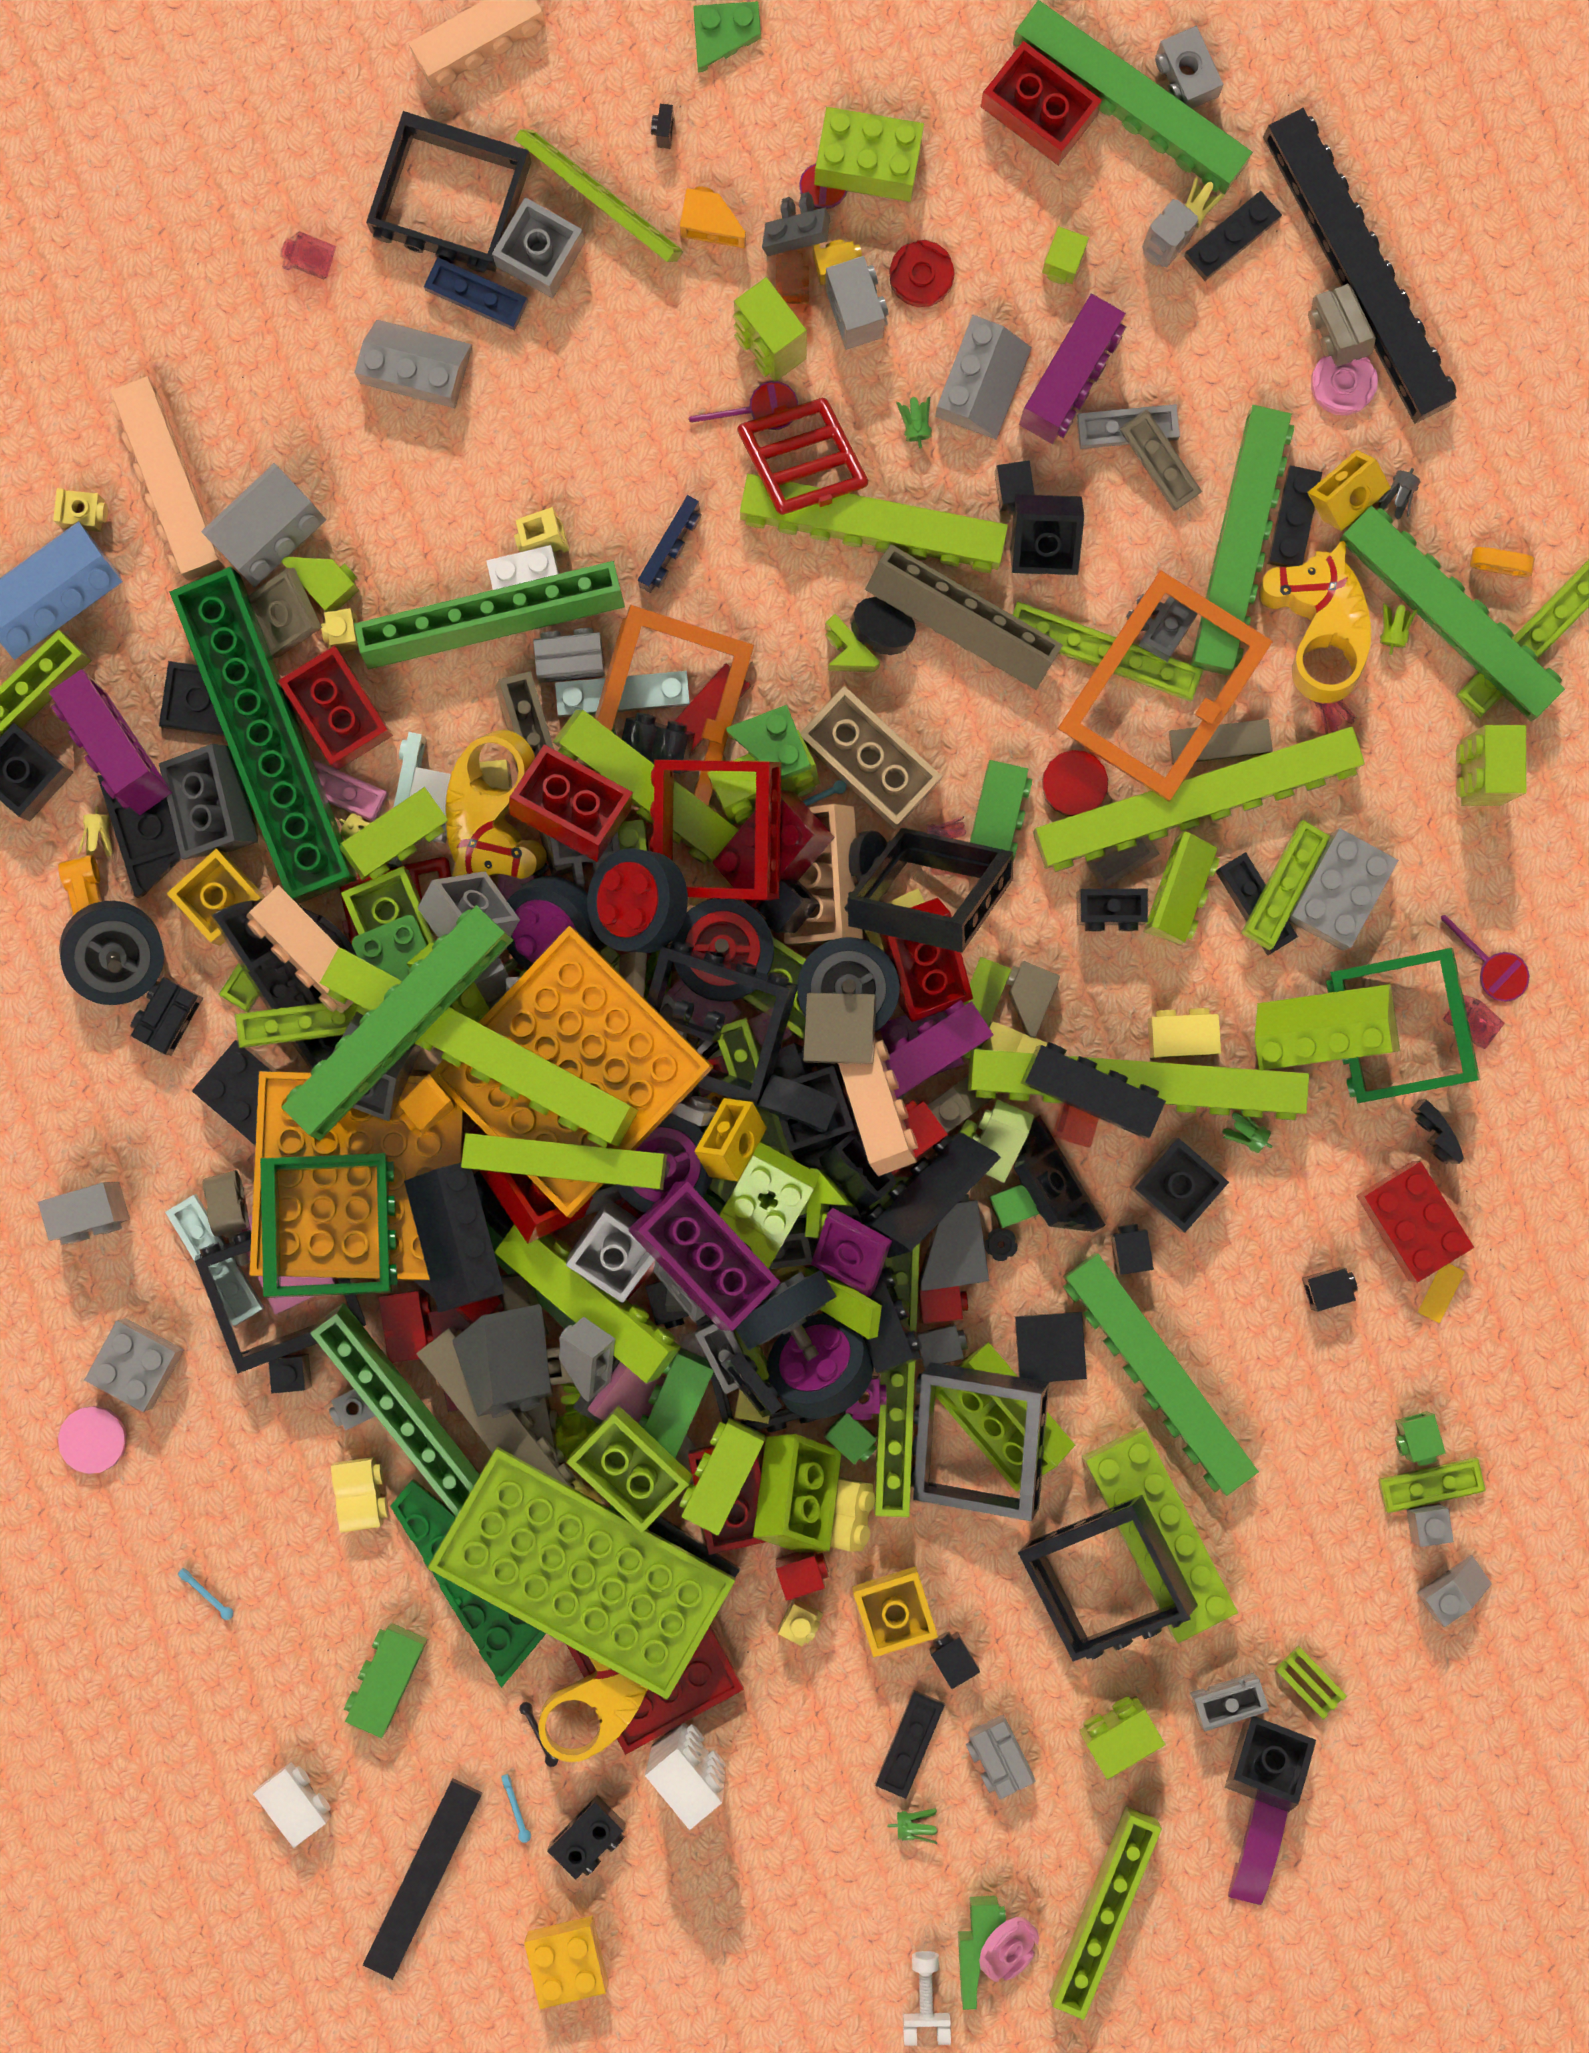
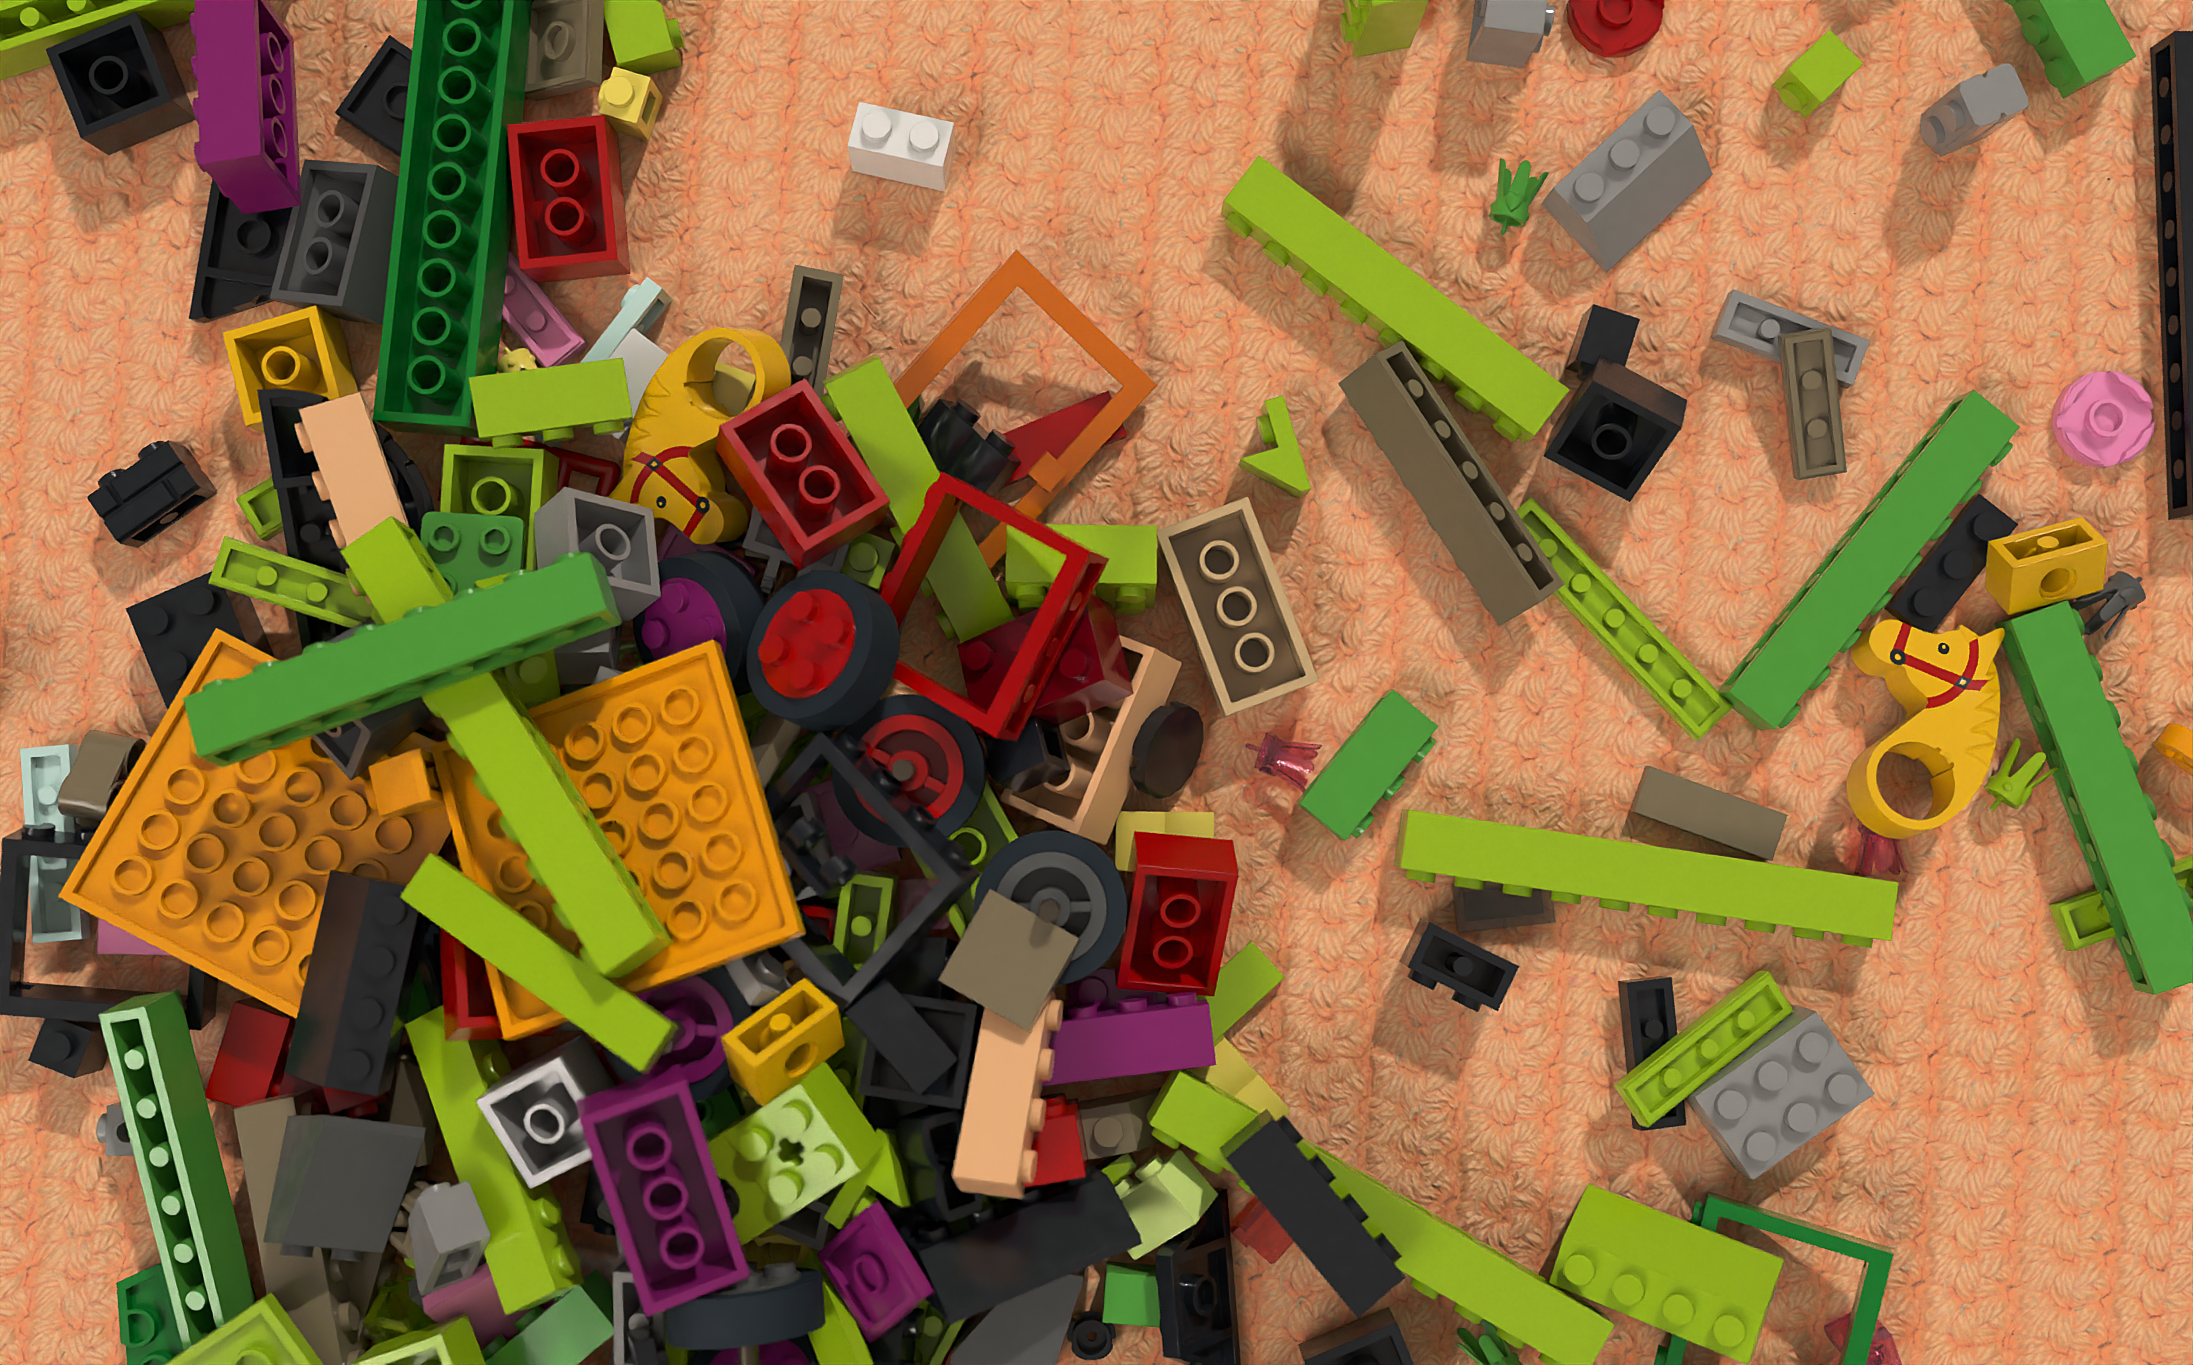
camera: 30 degrees right, 0 degrees up
(81, 881) = (131, 265): light orange piece -> none
(92, 826) = (183, 202): light yellow piece -> none
(111, 952) = (115, 375): wheel -> none
(270, 1223) = (112, 850): green window -> none
(358, 1494) = (84, 1246): light yellow brick -> none
(489, 615) = (828, 176): bright green brick -> none
(541, 530) = (955, 99): light yellow brick -> none
(568, 656) = (907, 281): light grey brick -> none
(639, 693) = (969, 373): light aqua plate -> none
(670, 545) = (1112, 200): dark blue plate -> none
(762, 403) = (1334, 86): piece -> none
(773, 480) = (1286, 180): red bar -> none
(773, 739) = (1115, 522): bright green wing -> none
(839, 787) = (1176, 626): medium azure hinge -> none
(882, 626) = (1337, 443): black tile -> none
(966, 858) = (1269, 782): black window -> none
(1031, 994) = (1294, 1027): dark tan slope -> none
(1074, 783) = (1489, 773): red tile -> none
(1076, 362) = (1758, 227): magenta brick -> none
(1167, 628) = (1718, 627): dark grey hinge -> none
(1182, 889) = (1563, 984): lime slope -> none
(1184, 1035) = (1470, 1180): light yellow brick -> none
(1197, 200) = (2036, 85): light yellow piece -> none
(1209, 712) = (1717, 770): orange door -> none
(1232, 235) = (2049, 156): black plate -> none
(1342, 325) = (2142, 343): dark tan brick -> none
(1492, 765) = (2068, 1032): lime brick -> none
(1502, 975) = (1932, 1306): piece -> none

